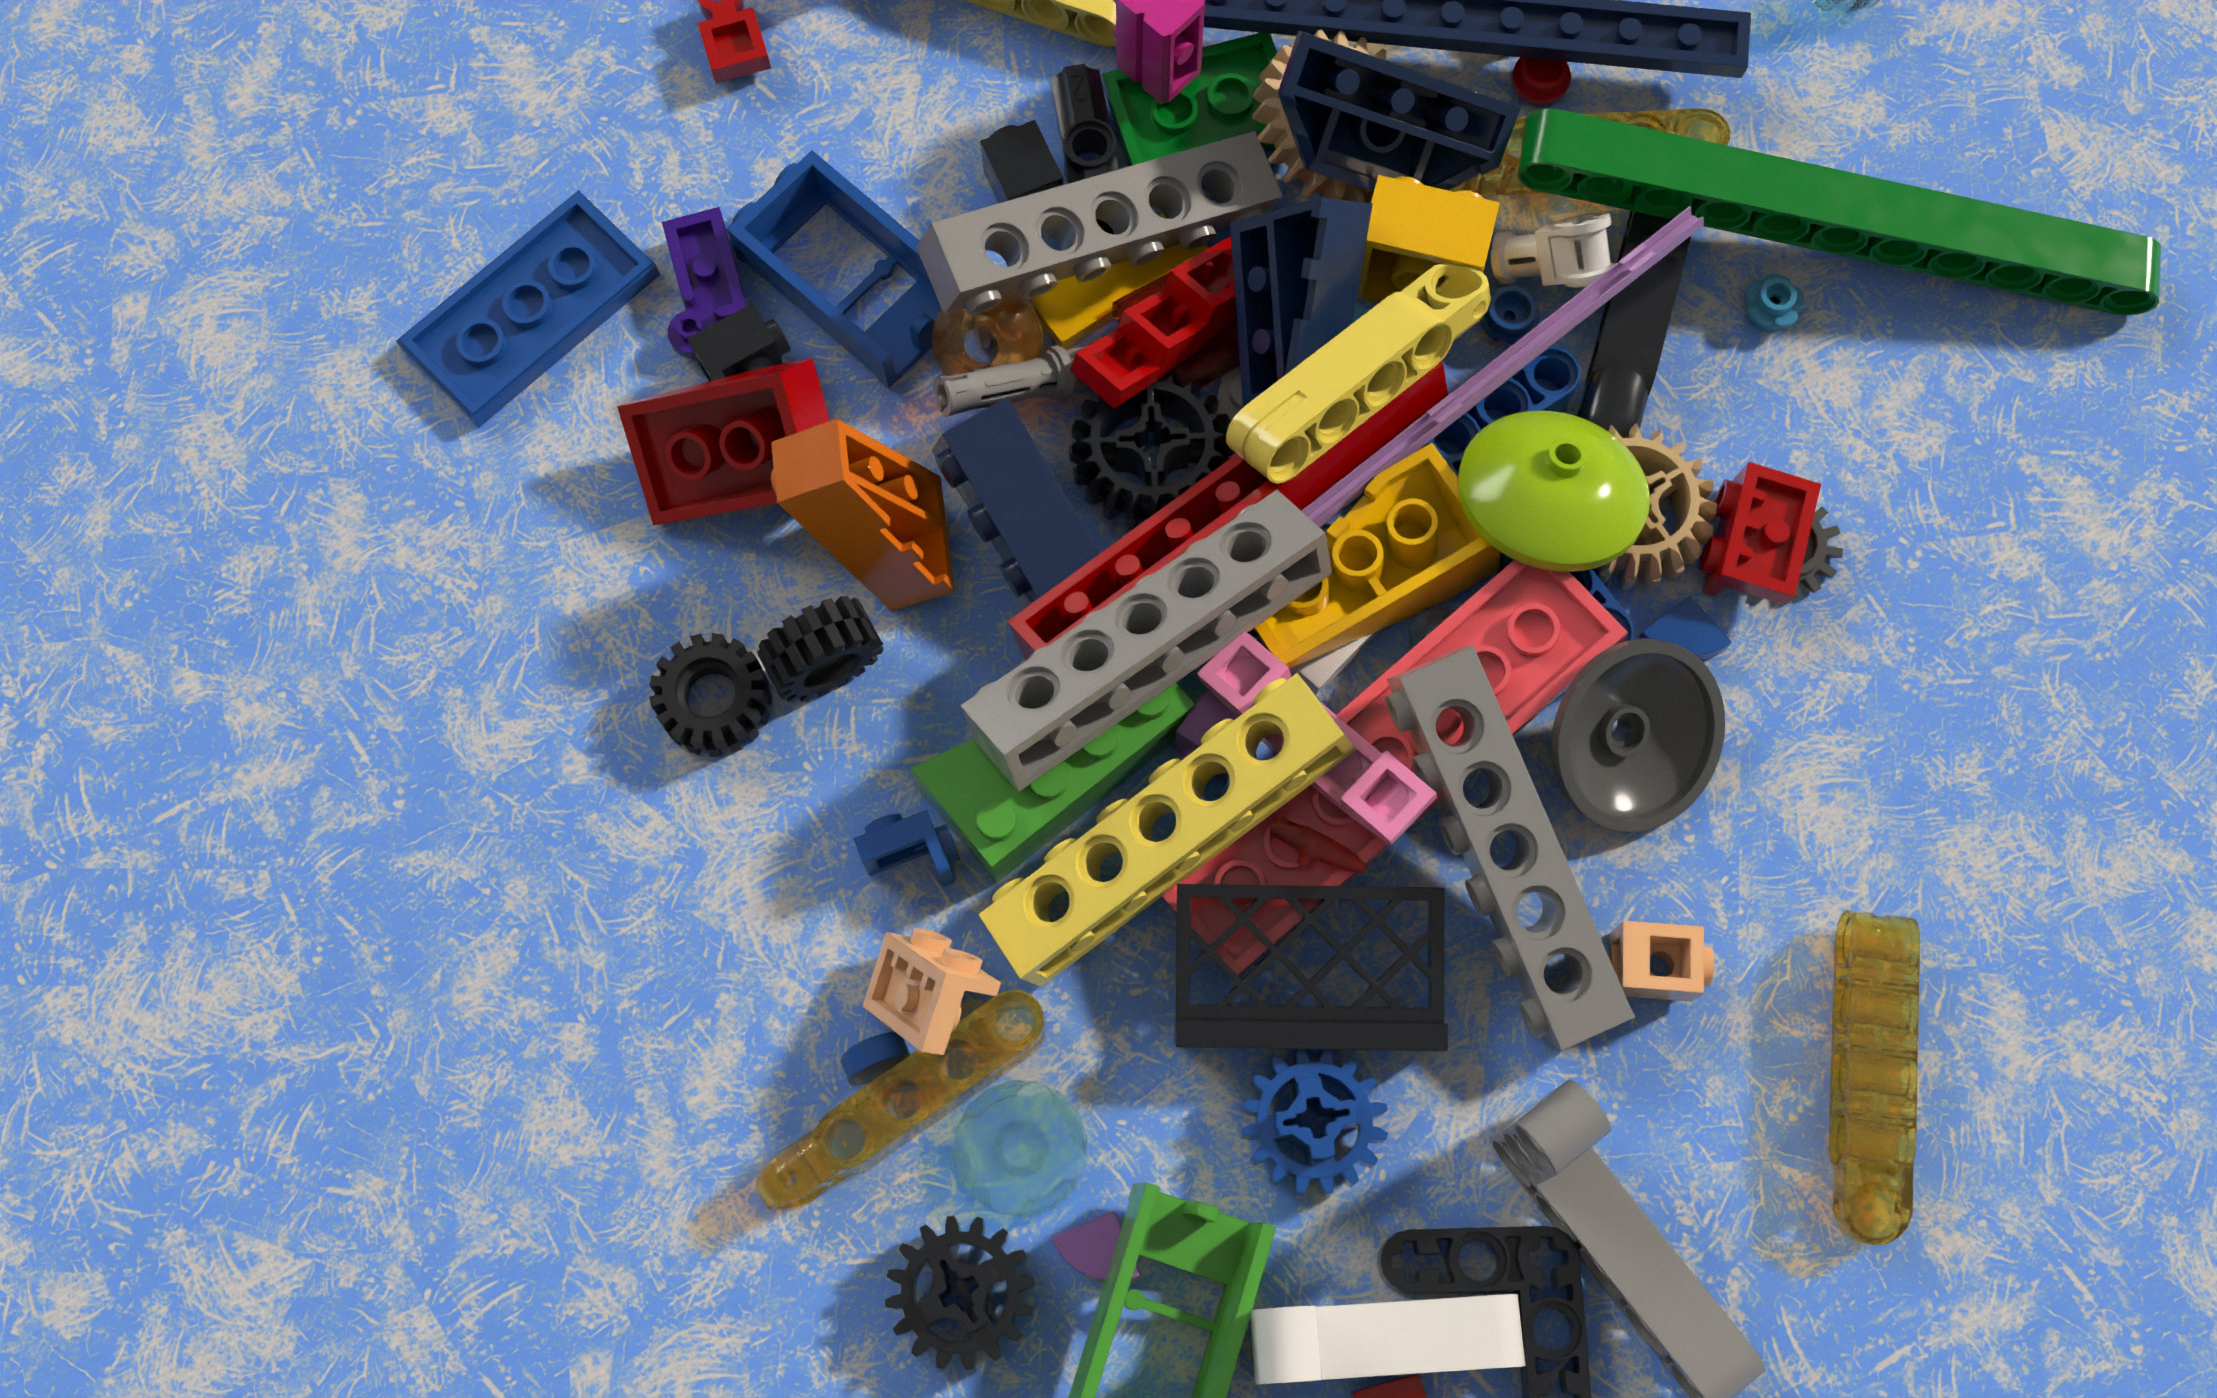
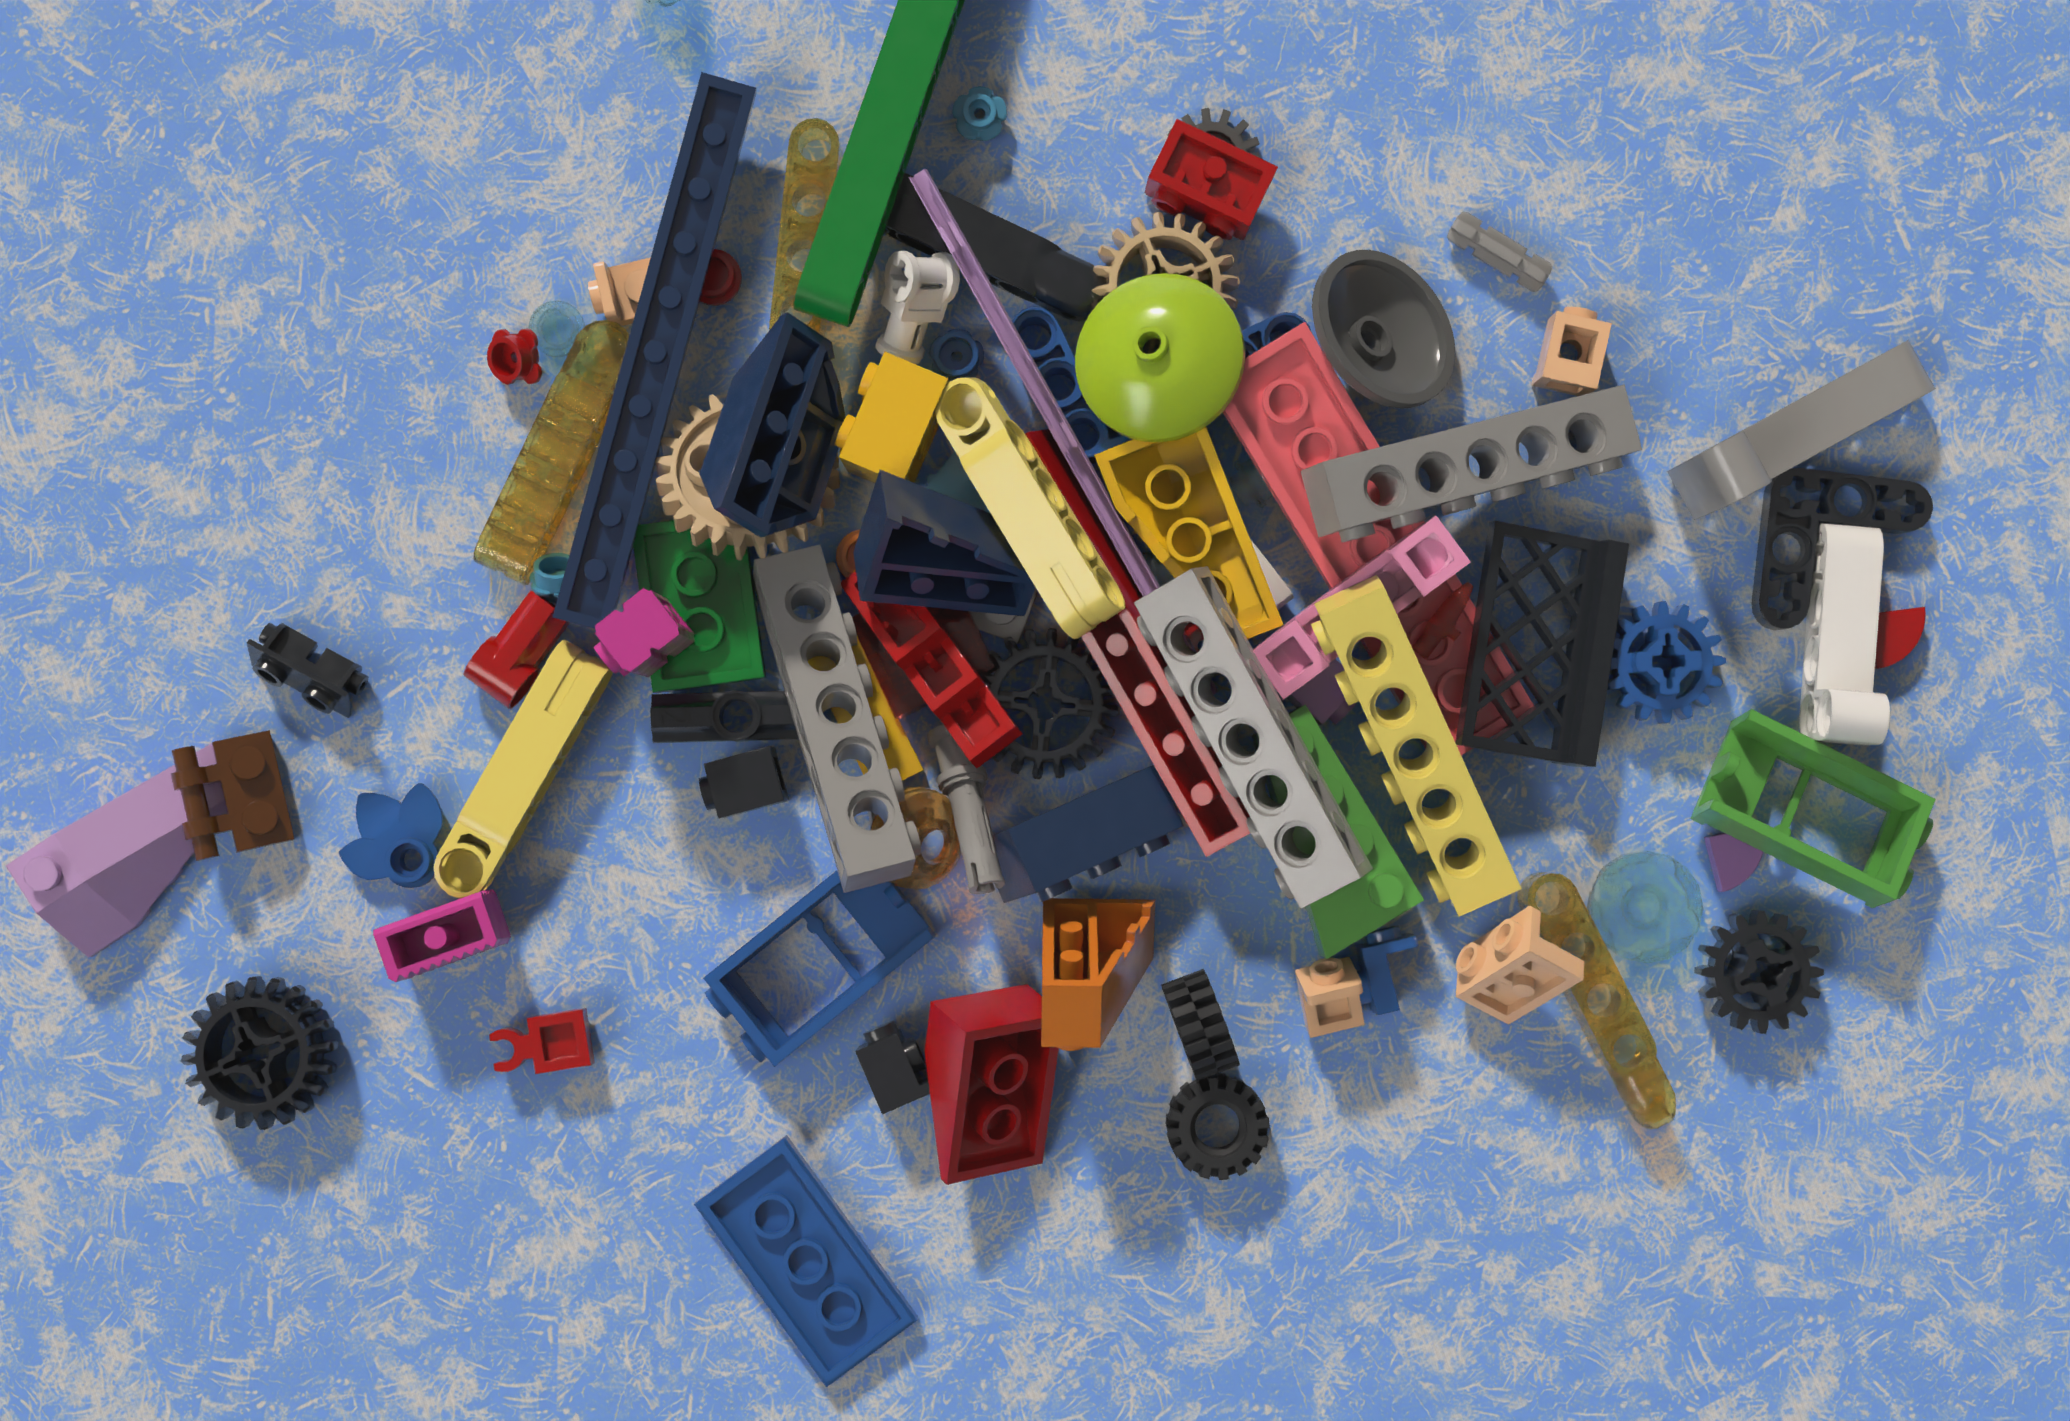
camera: 80 degrees left, 15 degrees up
(704, 275) = (808, 1092): dark purple hinge -> none
(869, 789) = (1330, 996): none -> light nougat bracket
(873, 1057) = (1560, 1021): blue tile -> none
(1689, 628) = (1282, 264): blue tile -> none
(1756, 868) = (1499, 251): none -> light grey axle
(1874, 1075) = (1685, 196): clear yellow piece -> none

